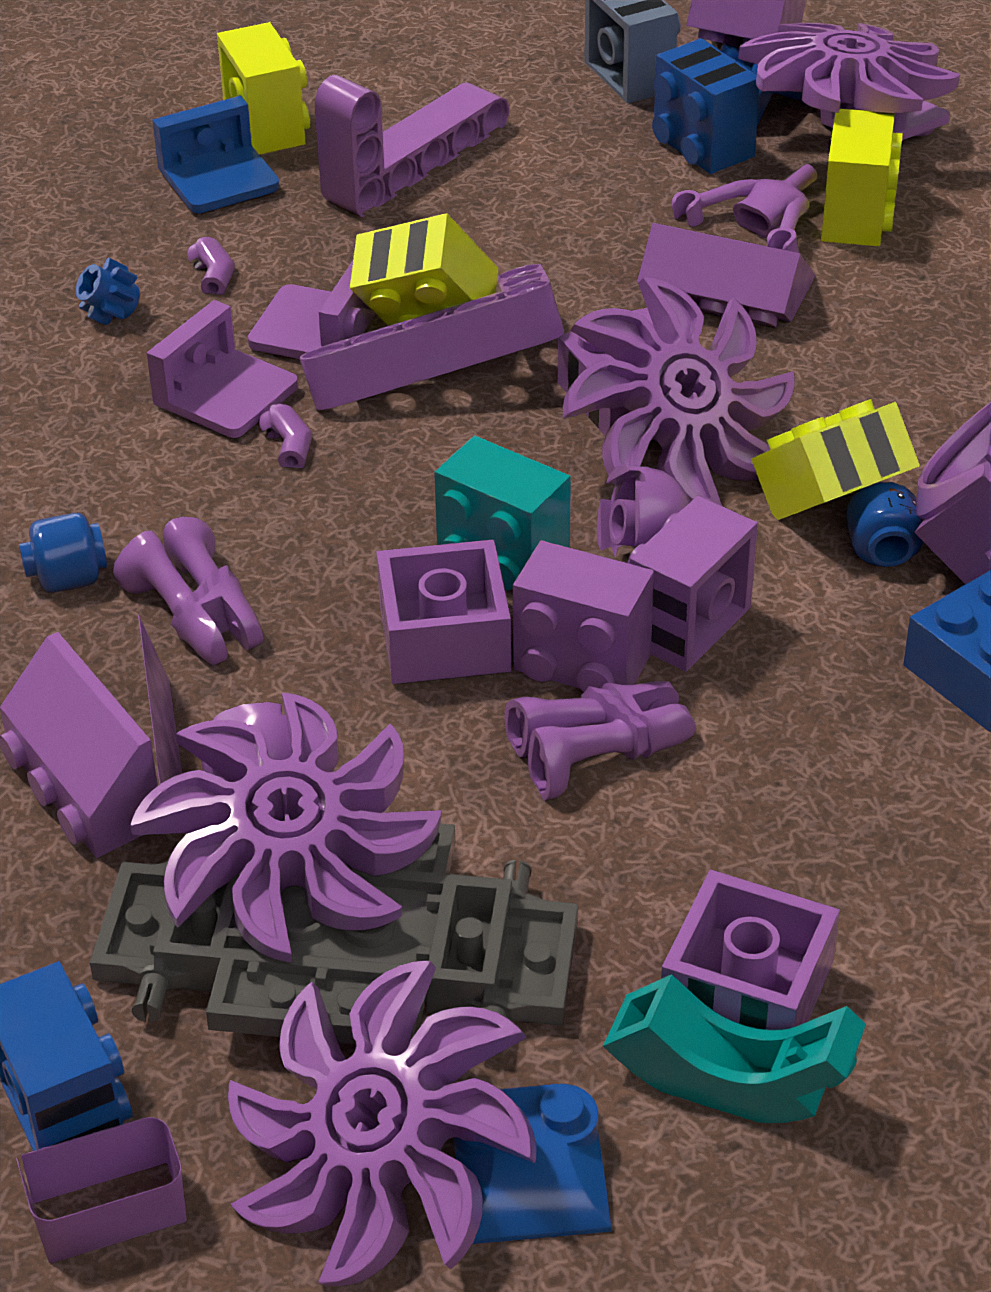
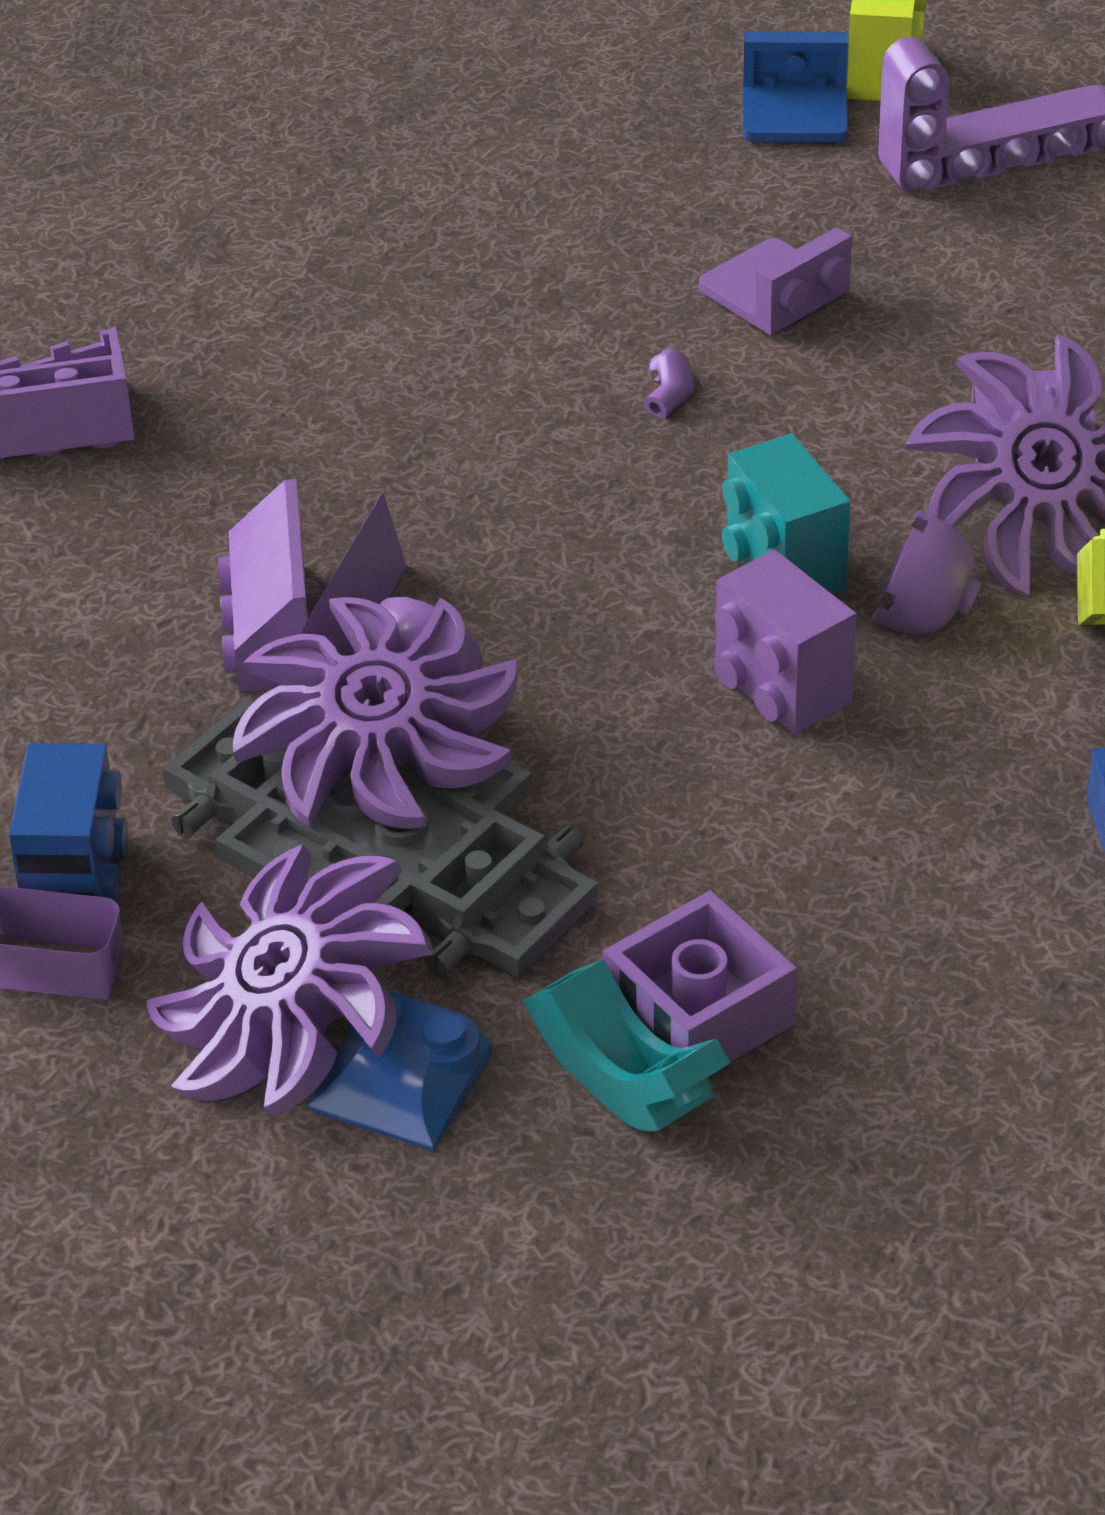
camera: 30 degrees right, 0 degrees up
(64, 552) = (385, 419): blue head -> none
(107, 291) = (597, 191): blue gear -> none
(200, 614) = (487, 509): medium lavender piece -> none
(210, 381) = (634, 301): medium lavender bracket -> none
(216, 259) = (727, 195): medium lavender arm -> none
(419, 269) = (881, 270): neon yellow brick -> none
(436, 342) = (865, 336): medium lavender beam -> none
(444, 611) = (662, 588): medium lavender brick -> none
(619, 720) = (758, 743): medium lavender piece -> none
(700, 579) = (918, 644): medium lavender brick -> none

